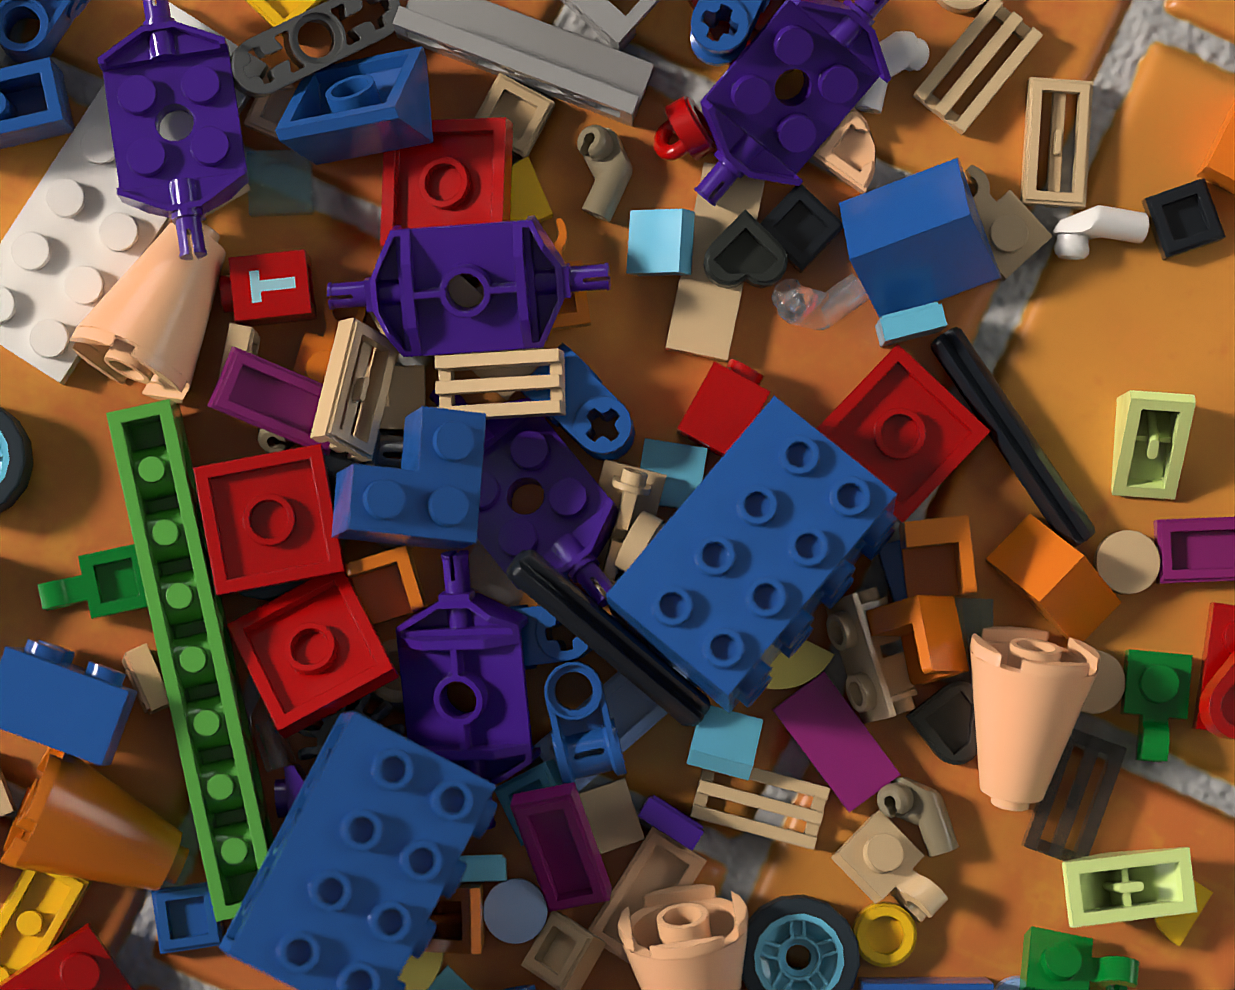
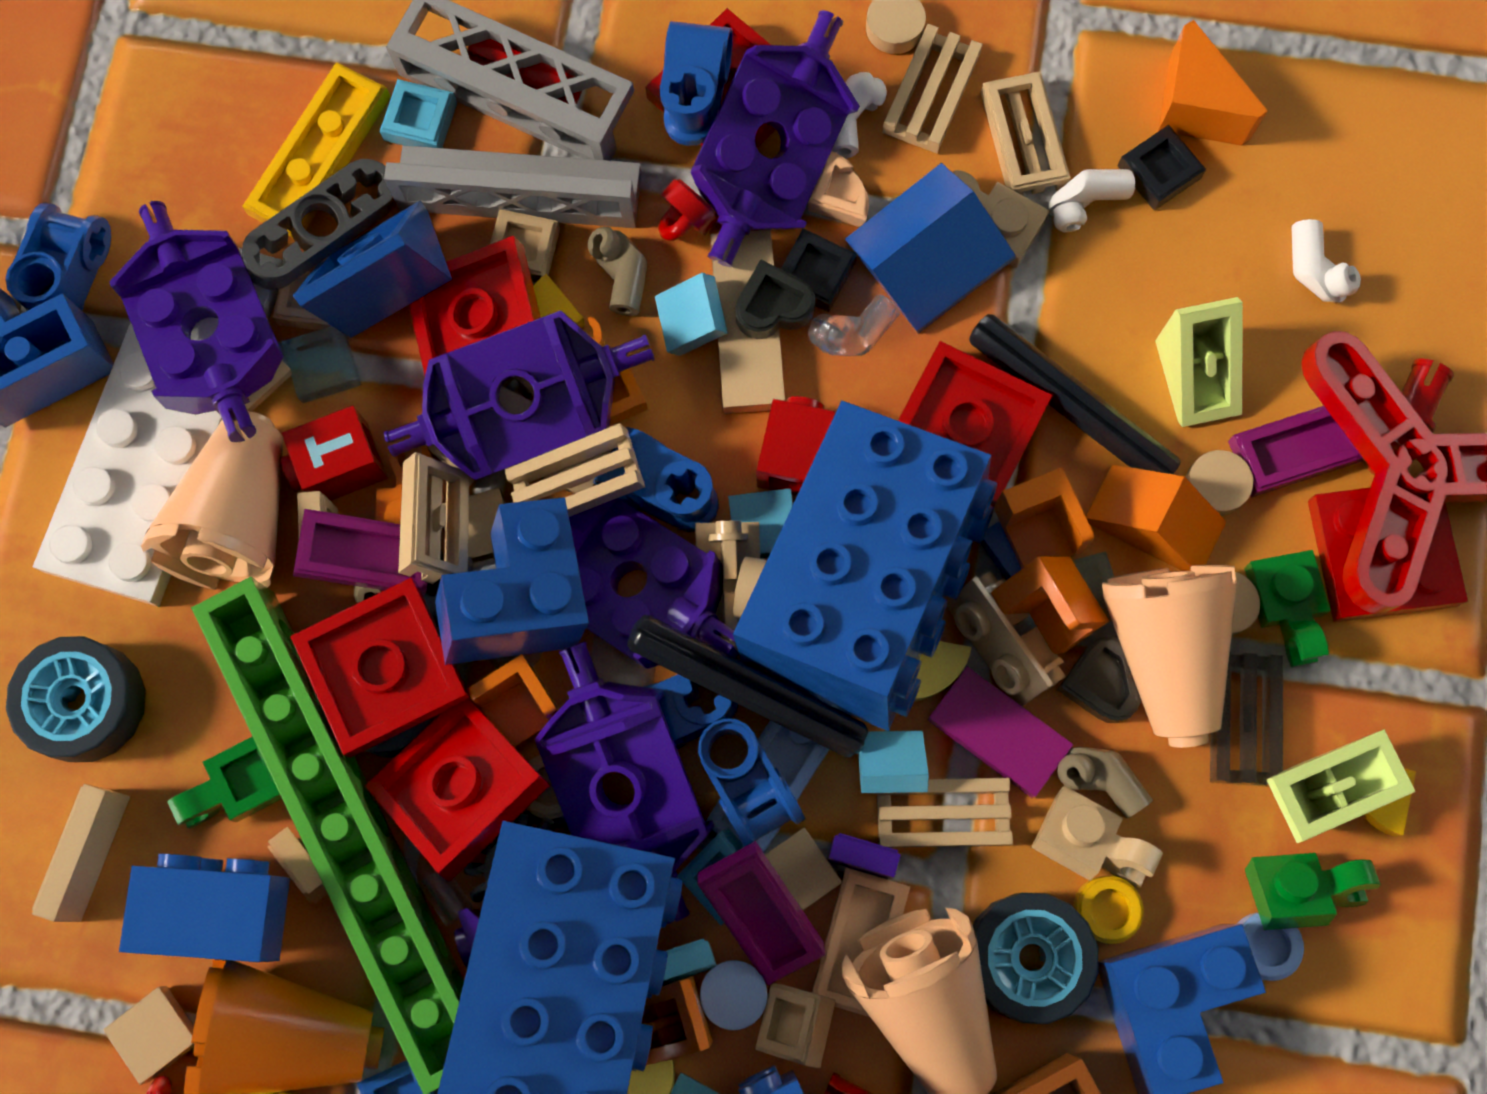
camera: 15 degrees left, 10 degrees down
(910, 324) = (946, 321): medium azure tile -> none

